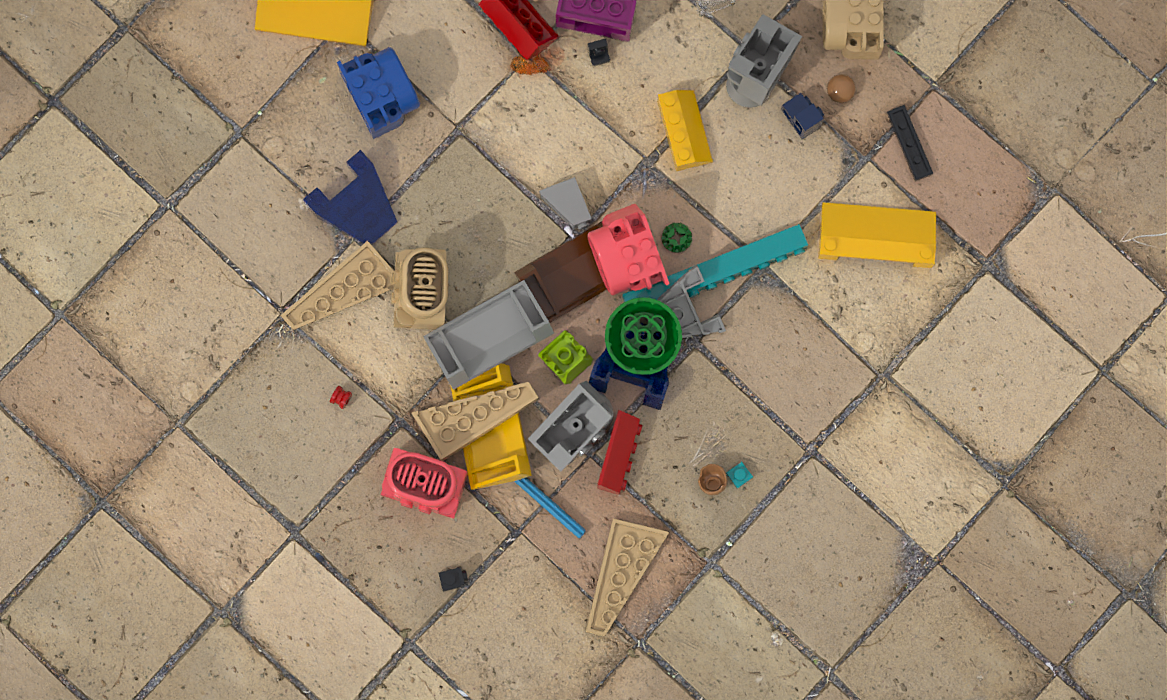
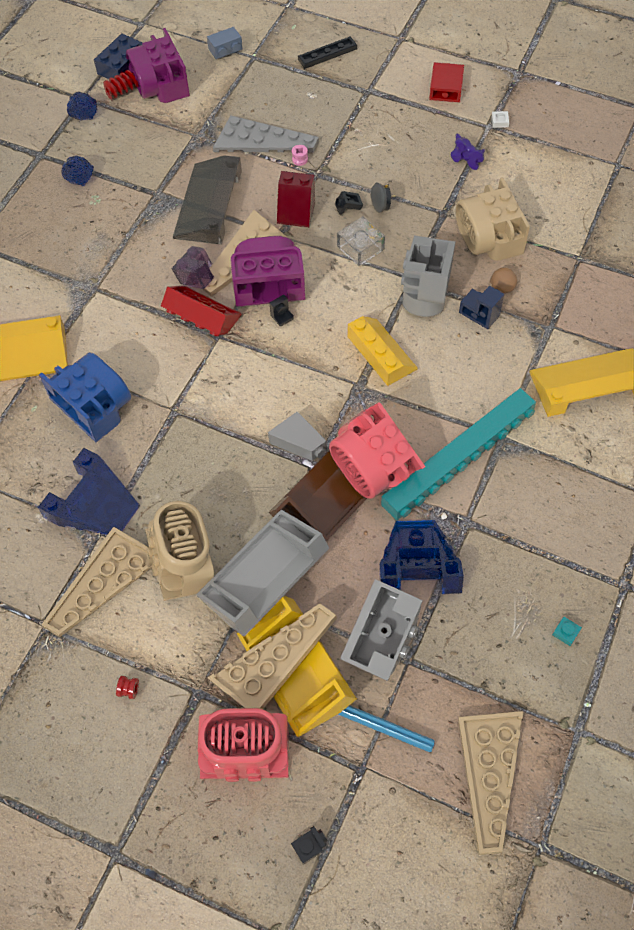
camera: 15 degrees left, 20 degrees down
(521, 67) = (217, 343): clear orange arm -> none
(566, 357) = (348, 574): lime slope -> none
(618, 453) = (437, 648): red slope -> none
(626, 351) = (429, 500): green brick -> none
(672, 245) = (420, 436): green gear -> none
(679, 301) = (441, 496): light grey wing -> none
(712, 479) = (544, 642): medium nougat hair -> none
(909, 143) = (582, 304): black tile -> none

